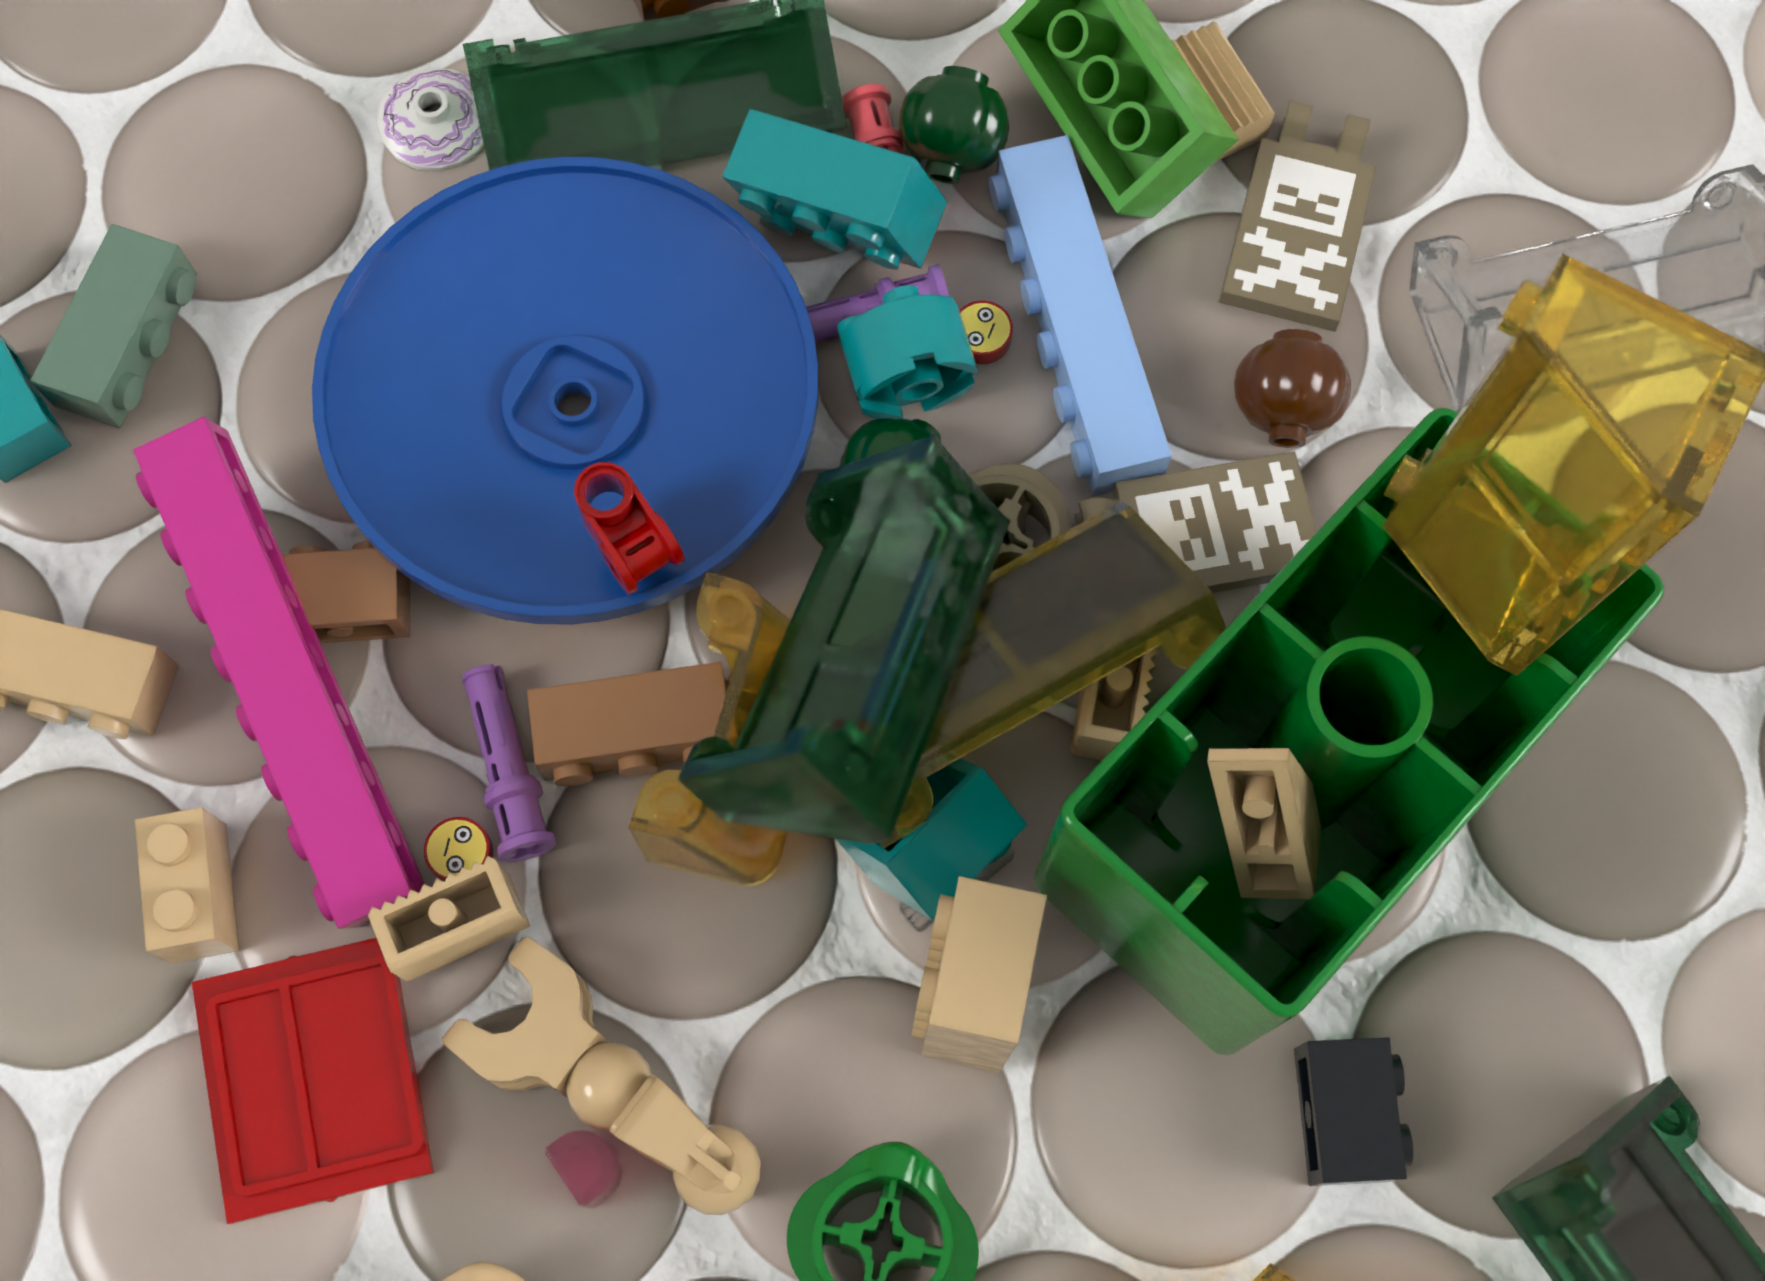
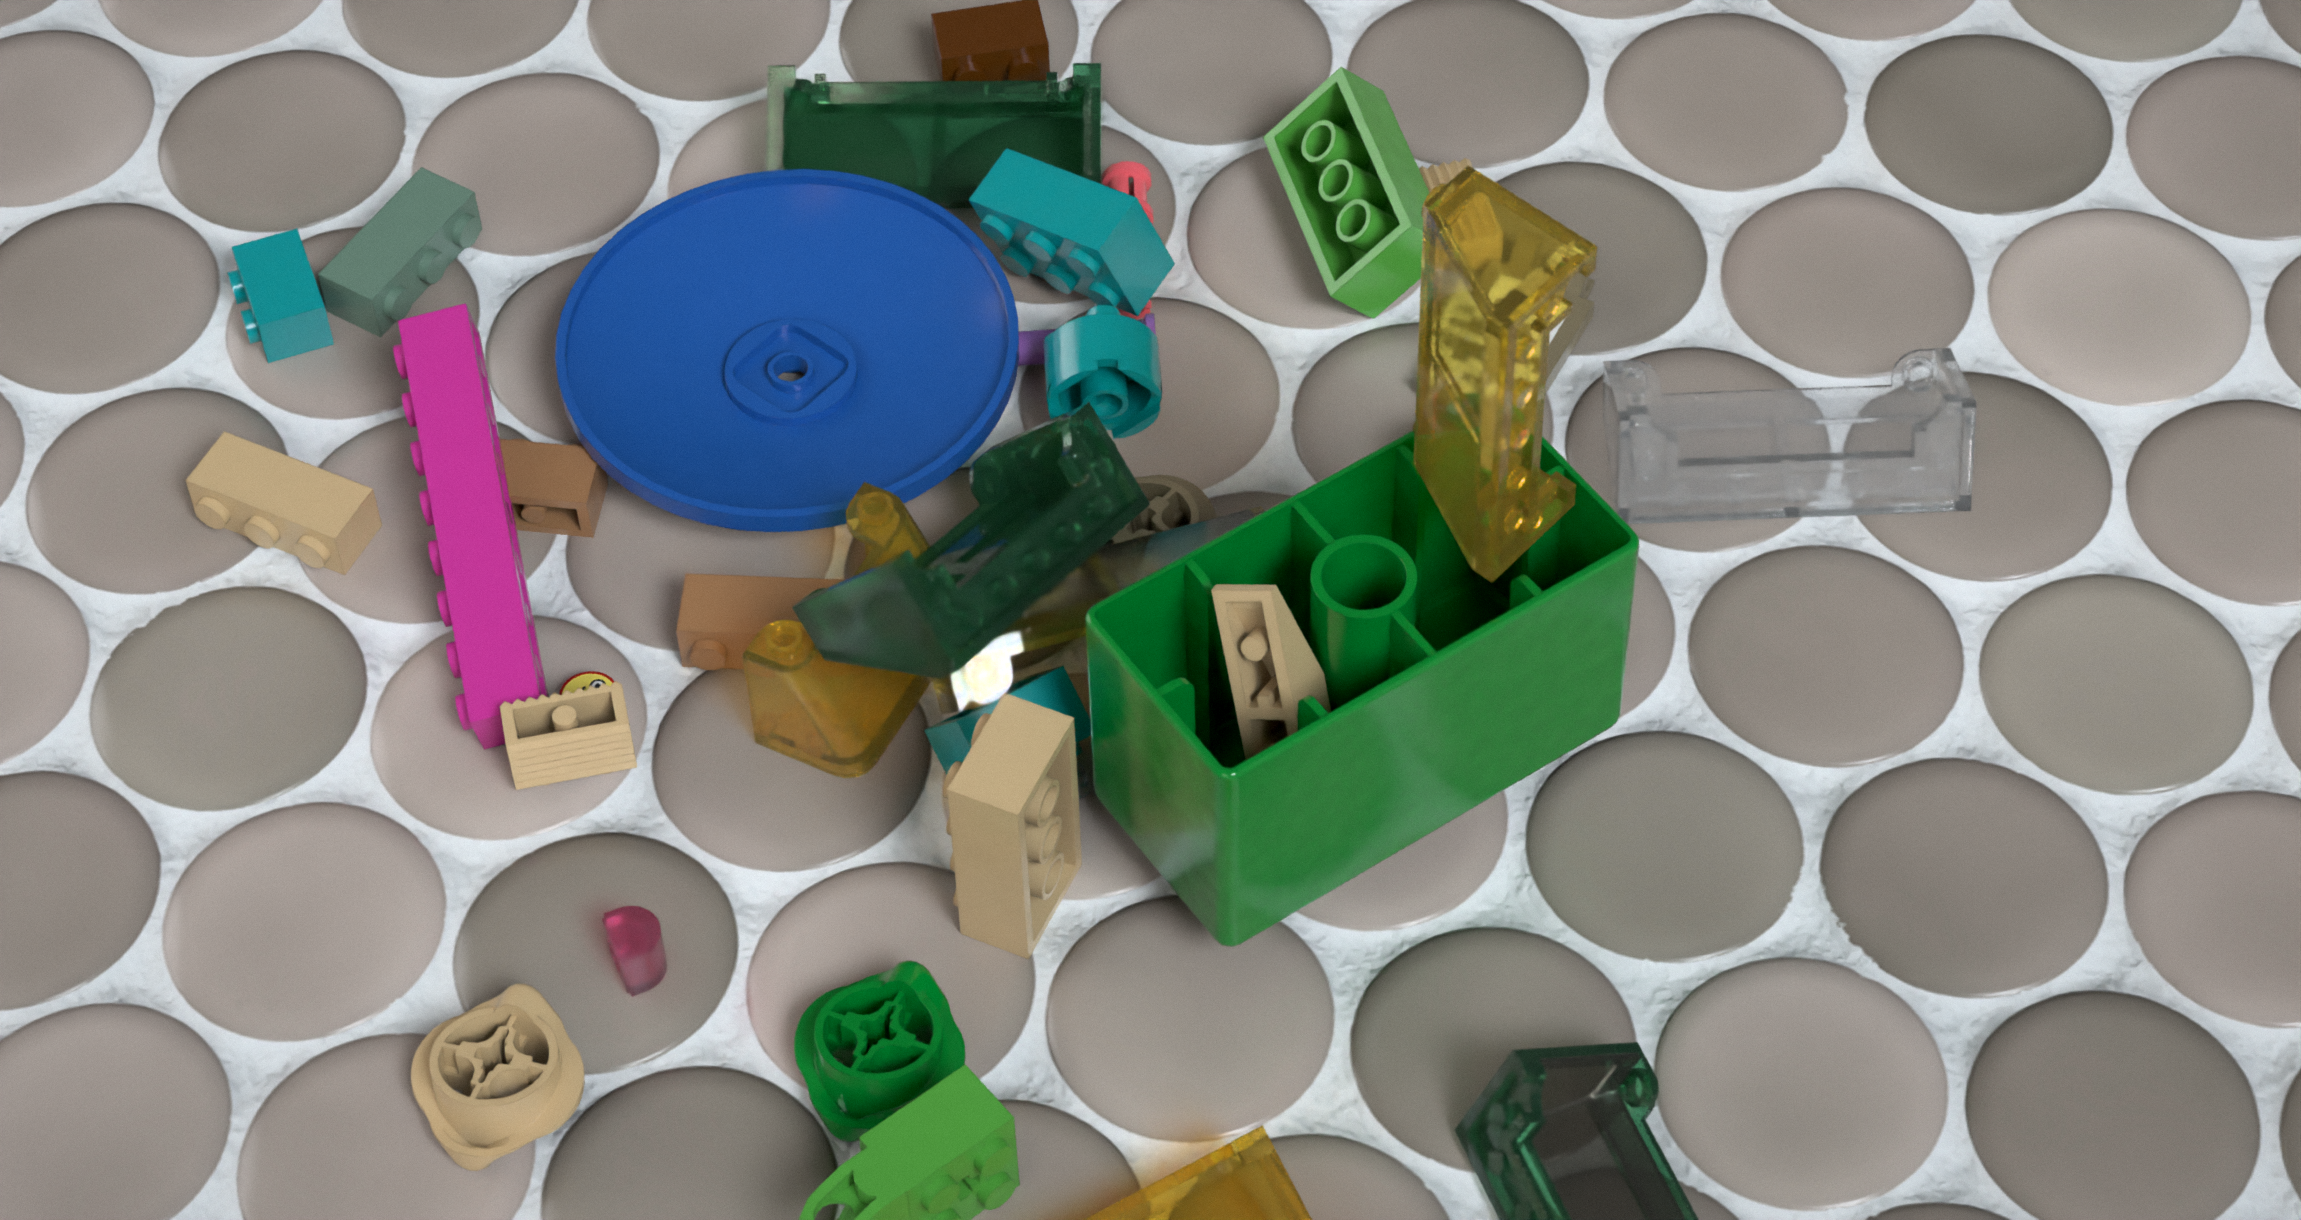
camera: 15 degrees right, 20 degrees down
(186, 885) = (346, 678): tan piece -> none
(310, 1080) = (411, 853): red piece -> none
(436, 138) = (724, 140): dish -> none
(511, 788) = (650, 659): medium lavender pin -> none
(607, 1085) = (641, 861): tan piece -> none
(631, 534) = (804, 444): red piece -> none
(954, 123) = (1200, 204): dark green plant -> none
(987, 329) = (1185, 380): tile -> none
(1079, 315) = (1274, 366): light blue brick -> none
(1352, 1111) = (1337, 1031): black brick -> none

